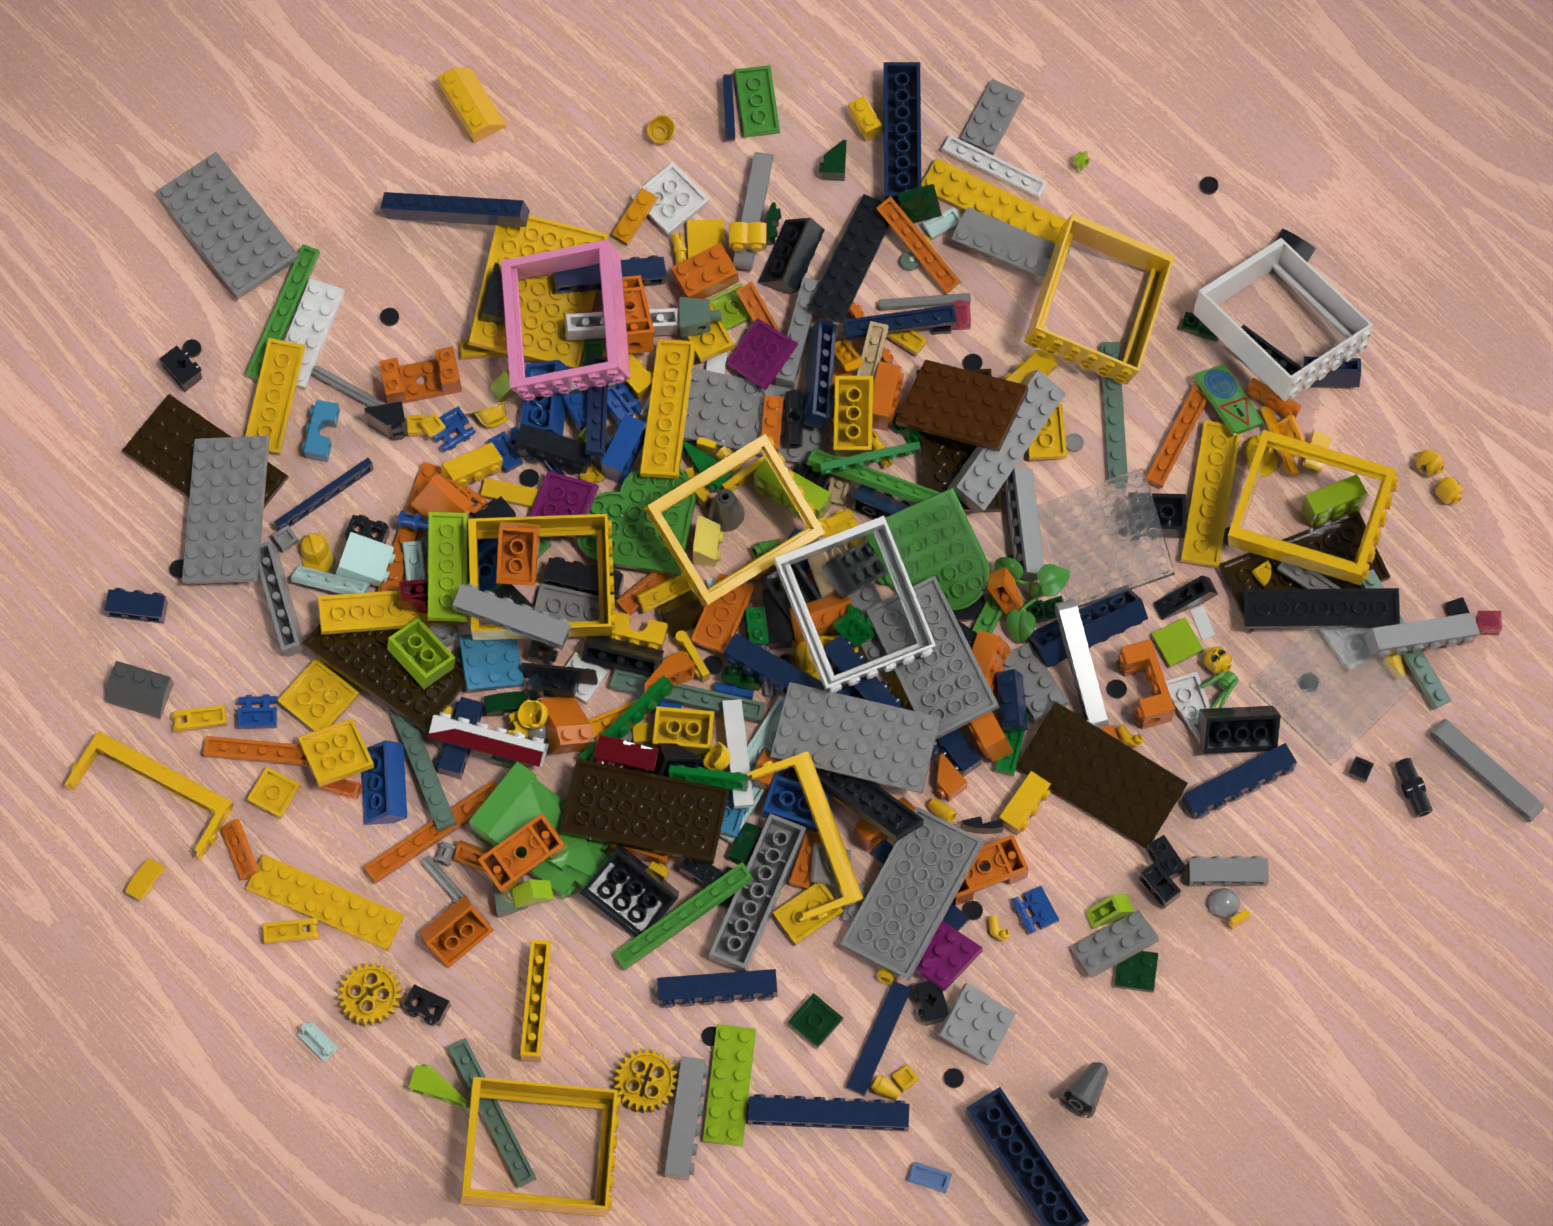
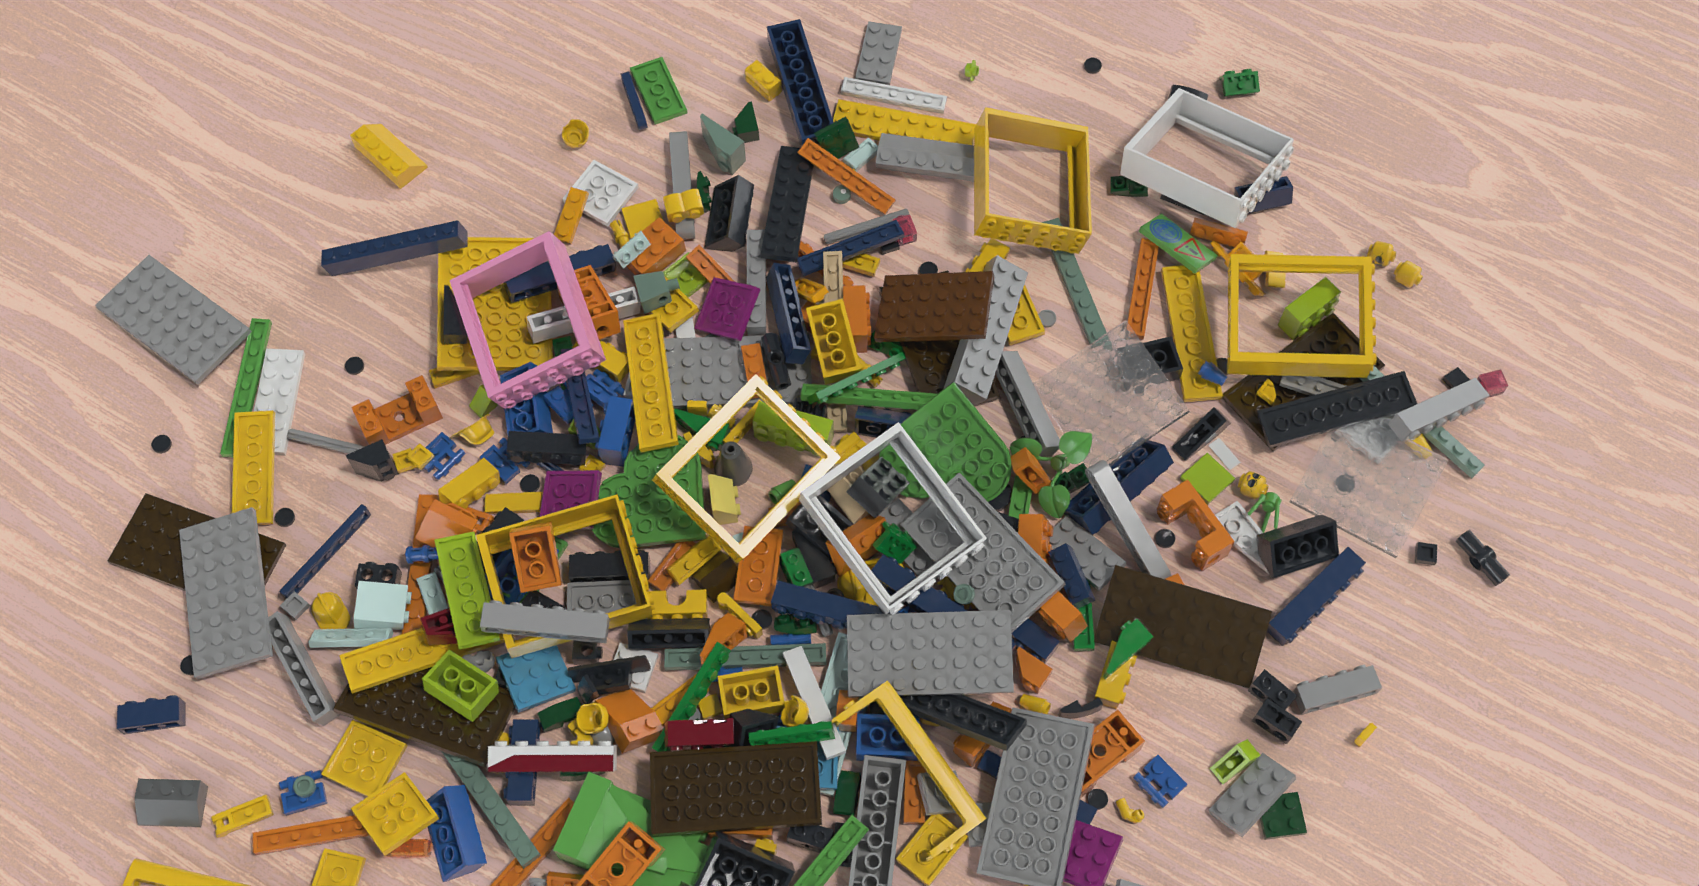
camera: 15 degrees left, 5 degrees down
(172, 364) = (153, 465): black brick -> none
(260, 707) = (304, 786): none -> sand green tile
(293, 450) = (285, 517): none -> black piece
(323, 415) = (308, 474): dark azure arch -> none
(684, 271) = (631, 249): none -> light aqua hinge
(807, 184) = (724, 145): none -> sand green slope
(904, 691) = (964, 594): none -> sand green tile
(1047, 775) = (1129, 642): none -> green slope
(1129, 739) = (1198, 583): yellow arm -> none
(1215, 541) = (1212, 373): none -> blue cone
(1223, 903) = (1343, 722): light grey hair -> none
(1250, 447) = (1217, 284): yellow piece -> none
(1353, 244) = (1240, 83): none -> green bracket
(1487, 770) = (1545, 523): light grey beam -> none

